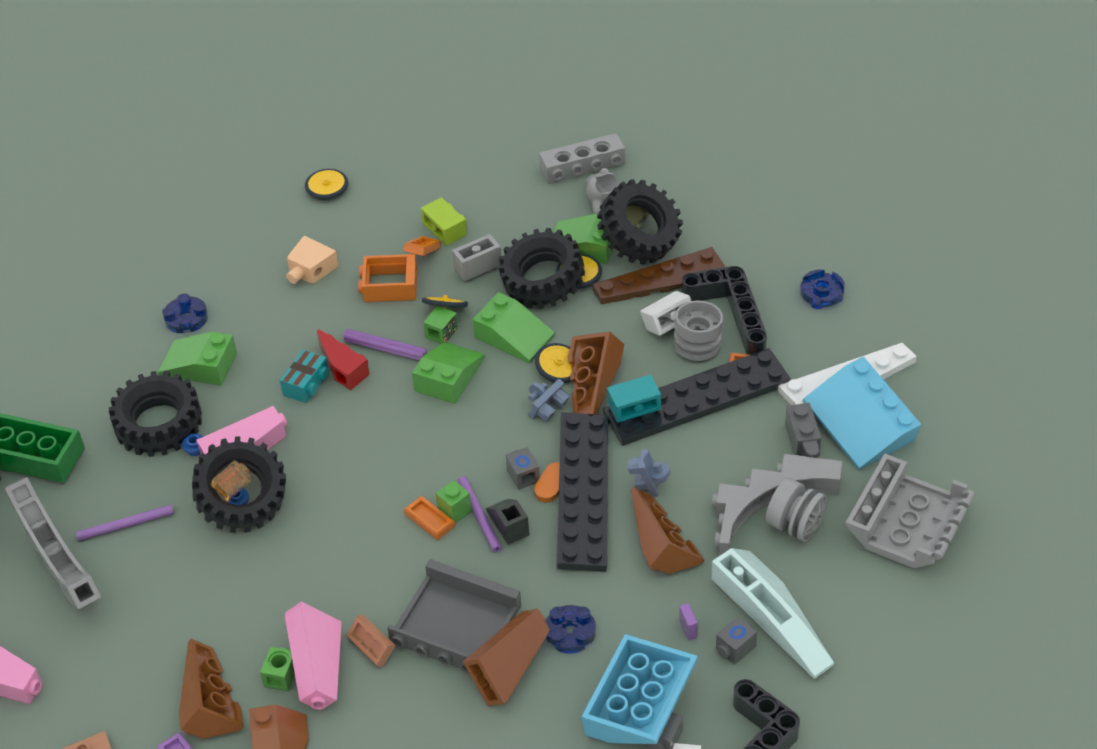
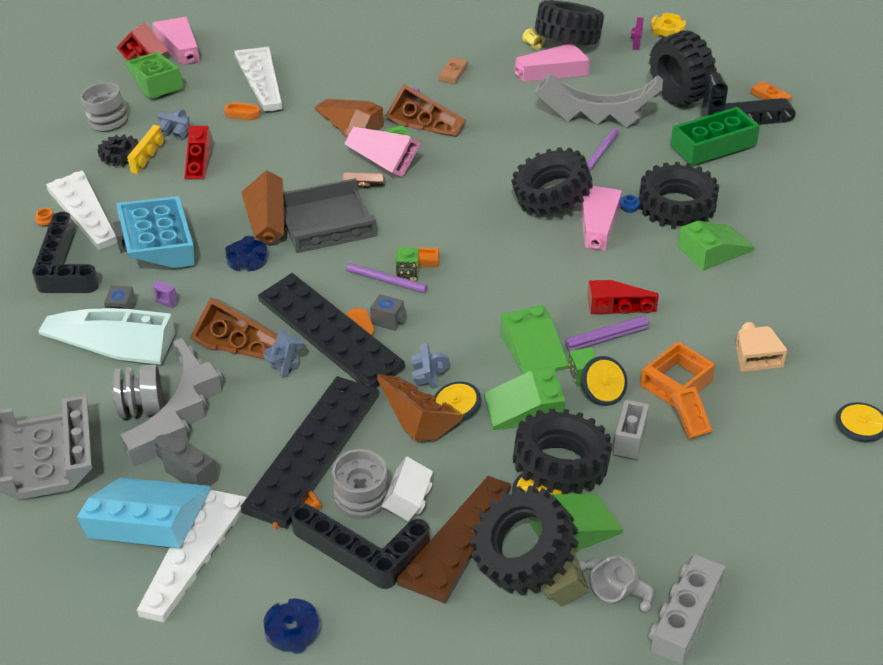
camera: 135 degrees right, 5 degrees down
(184, 304) = (769, 262): clear blue plate -> none
(231, 480) = (544, 159): clear orange brick -> none
(304, 376) = (624, 269): teal brick -> none
(444, 221) = (712, 450): lime brick -> none
(509, 520) = (357, 274): pearl dark grey slope -> none
(634, 398) = (350, 390): teal brick -> none

